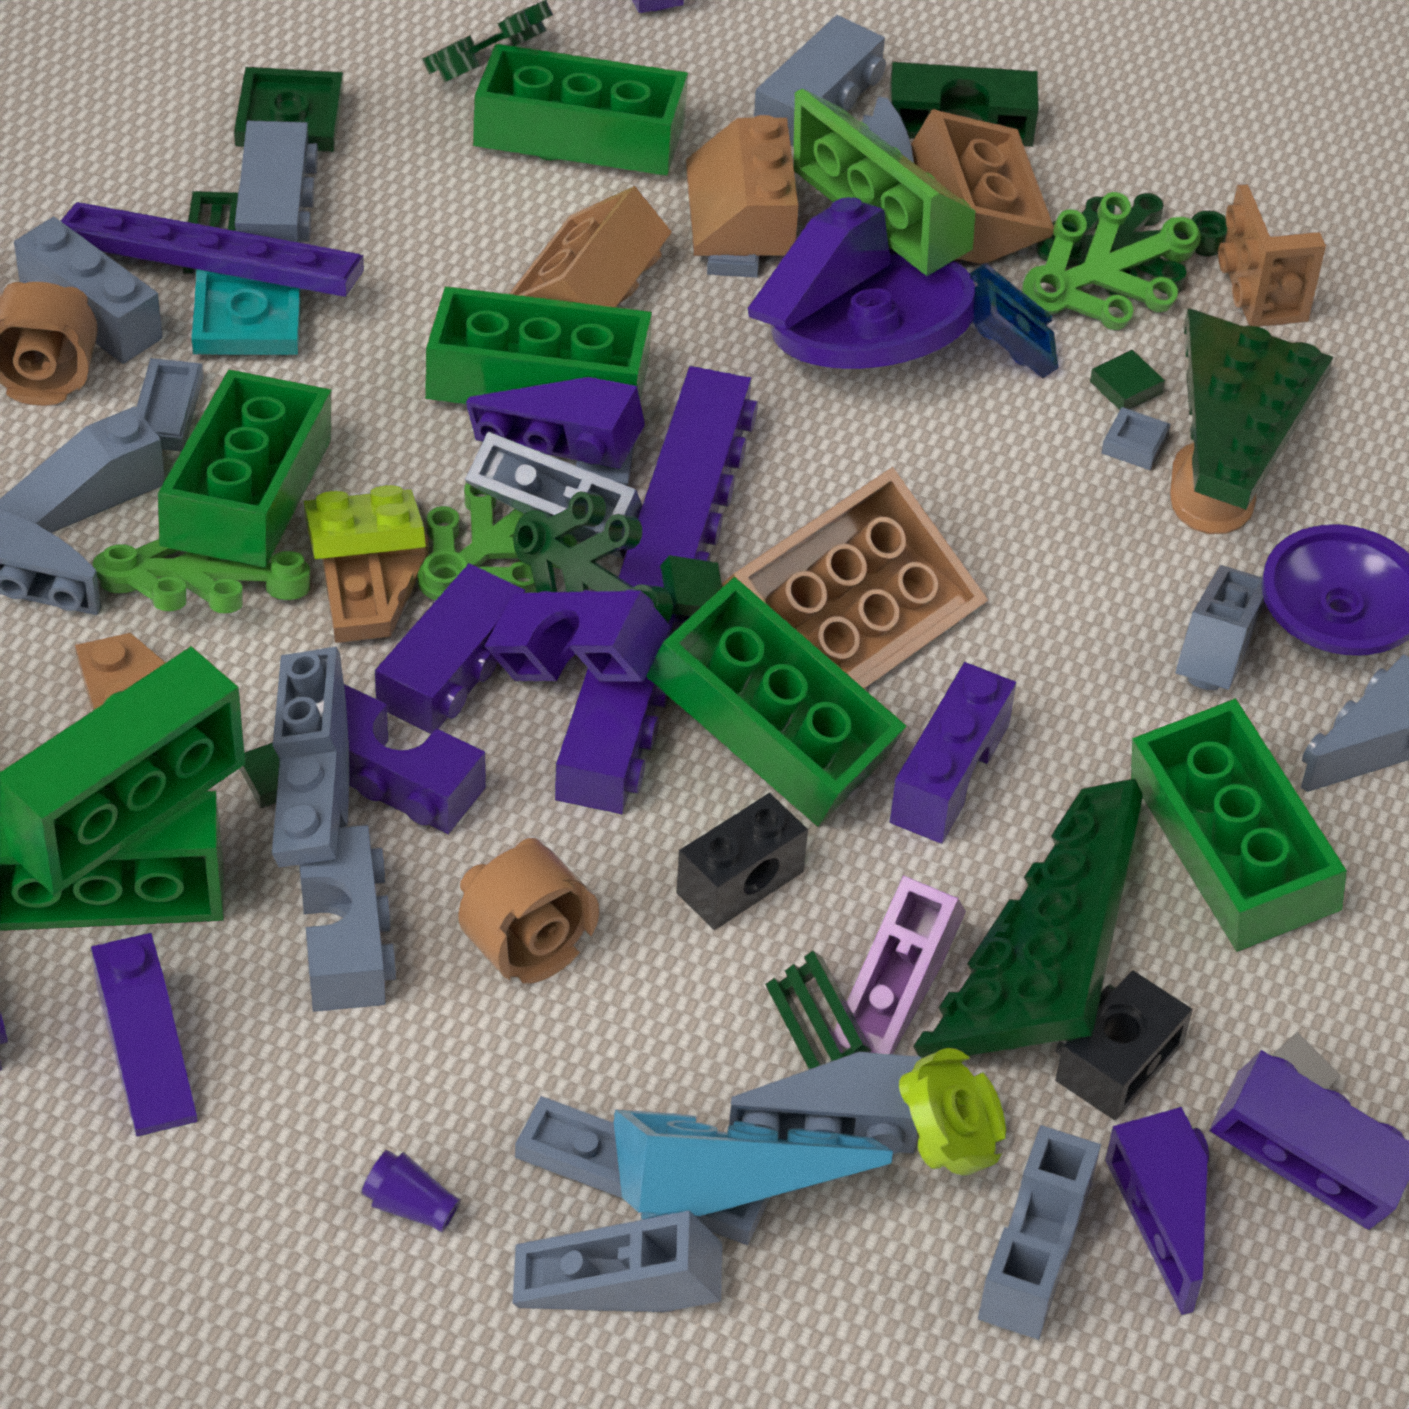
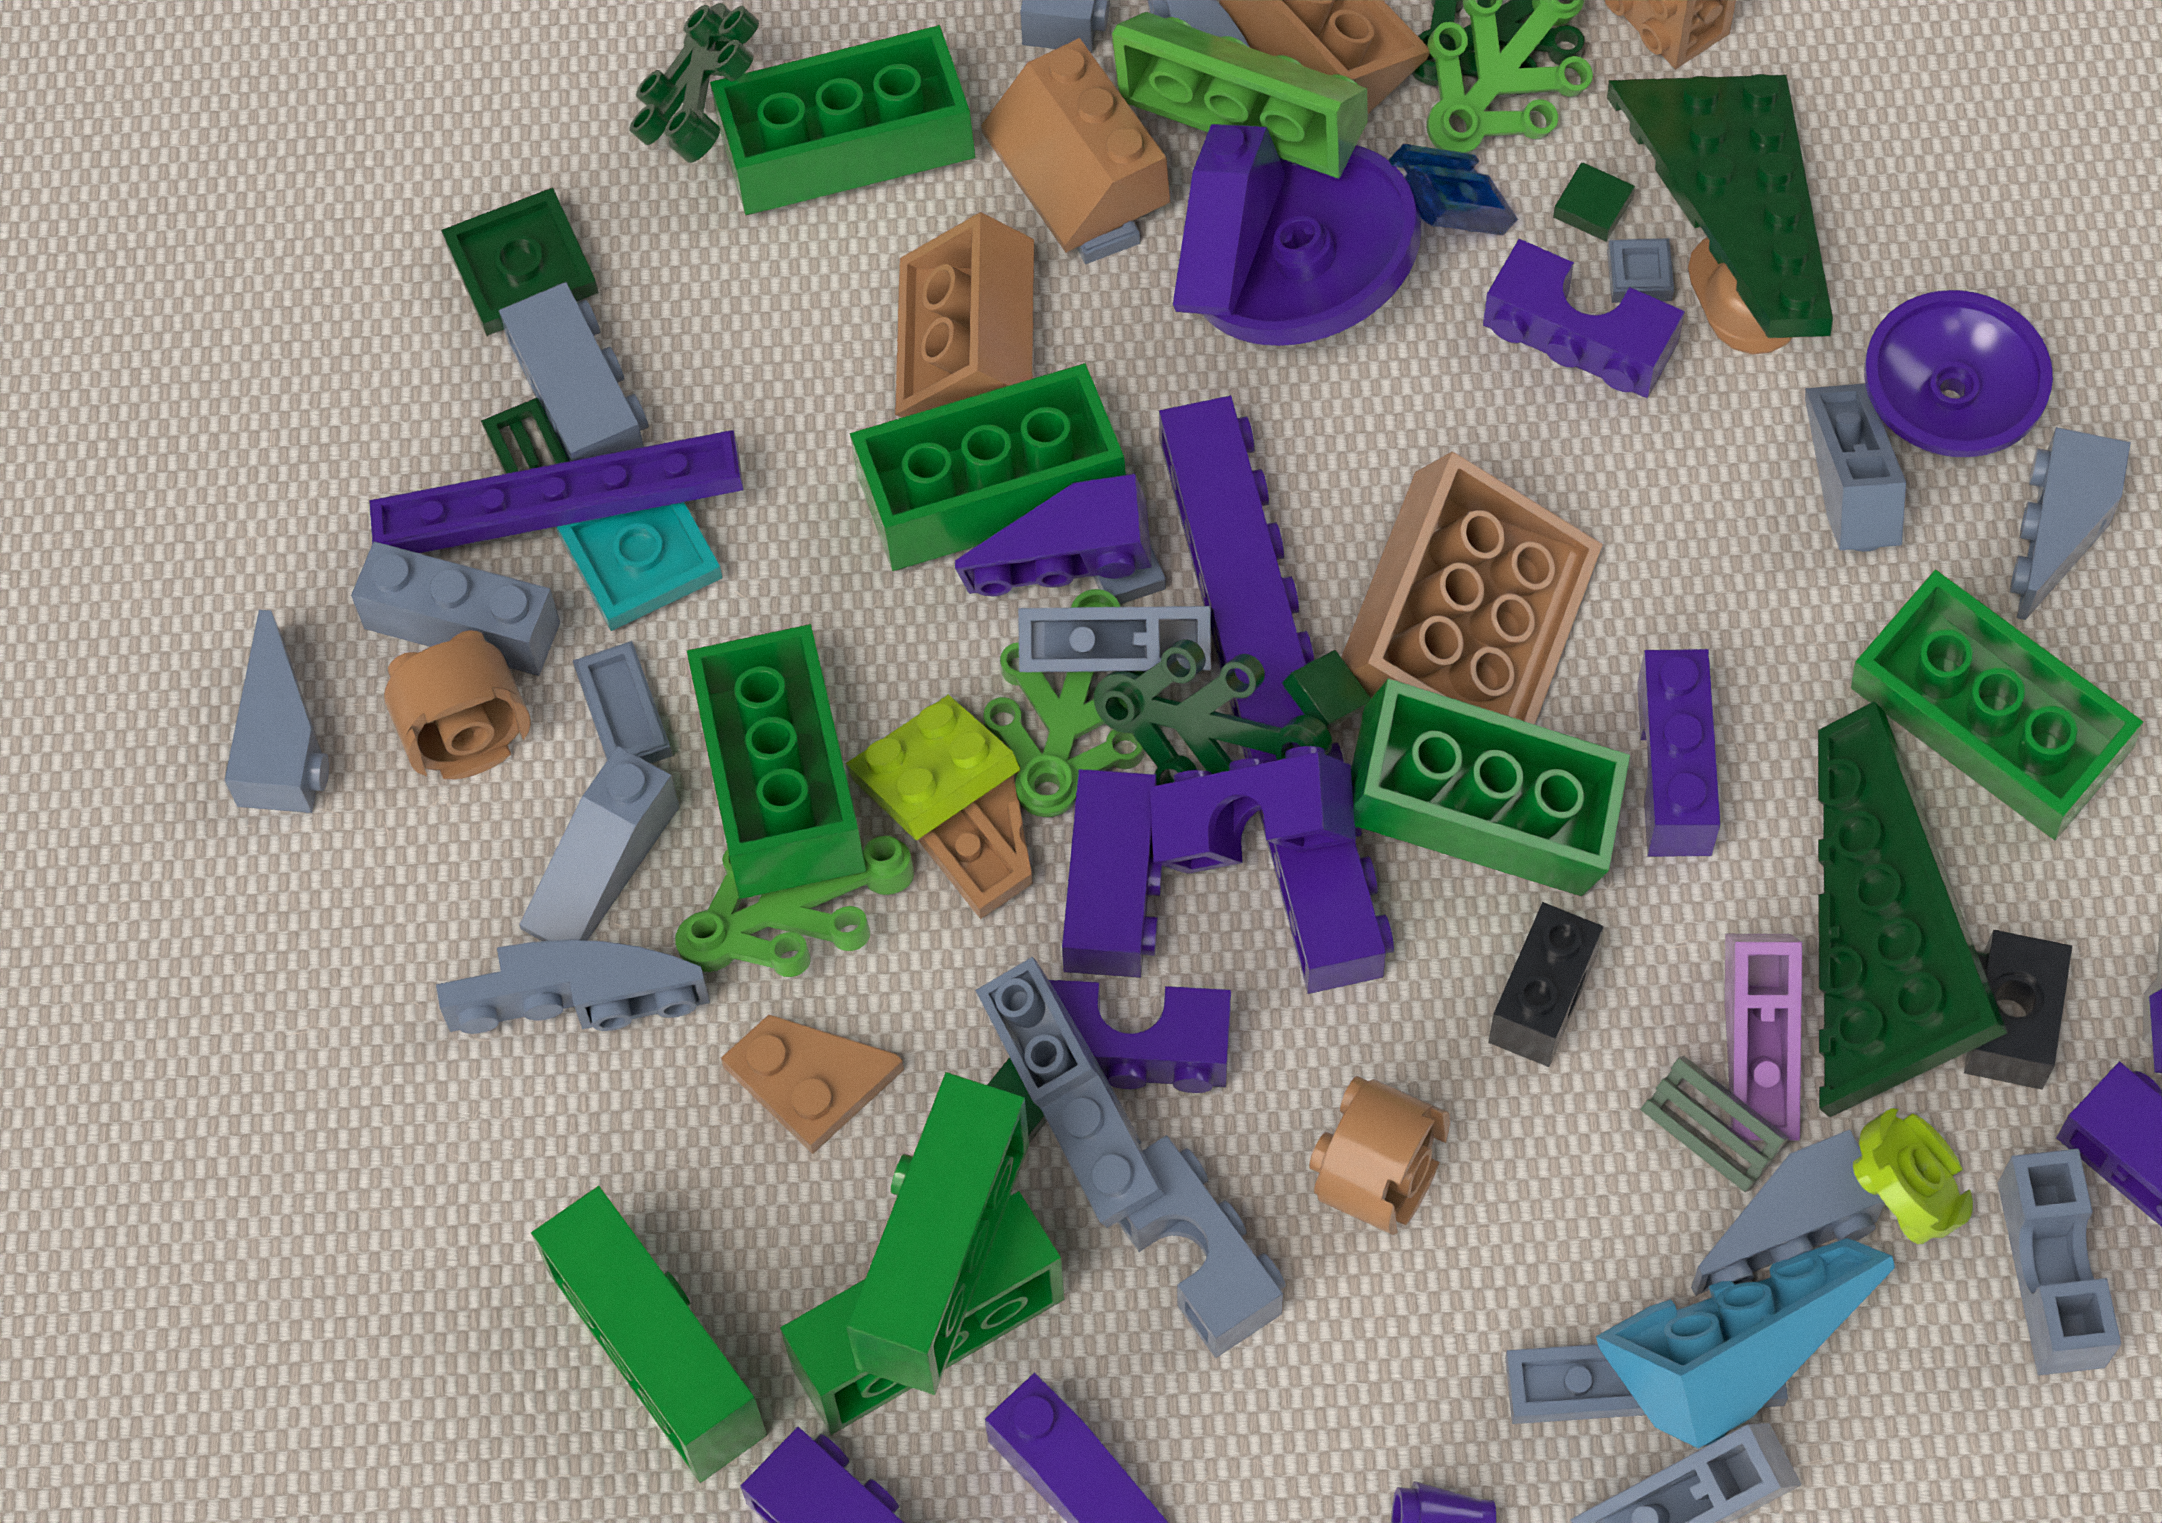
camera: 20 degrees left, 15 degrees up
(1087, 474) = (1621, 346): none -> dark purple arch

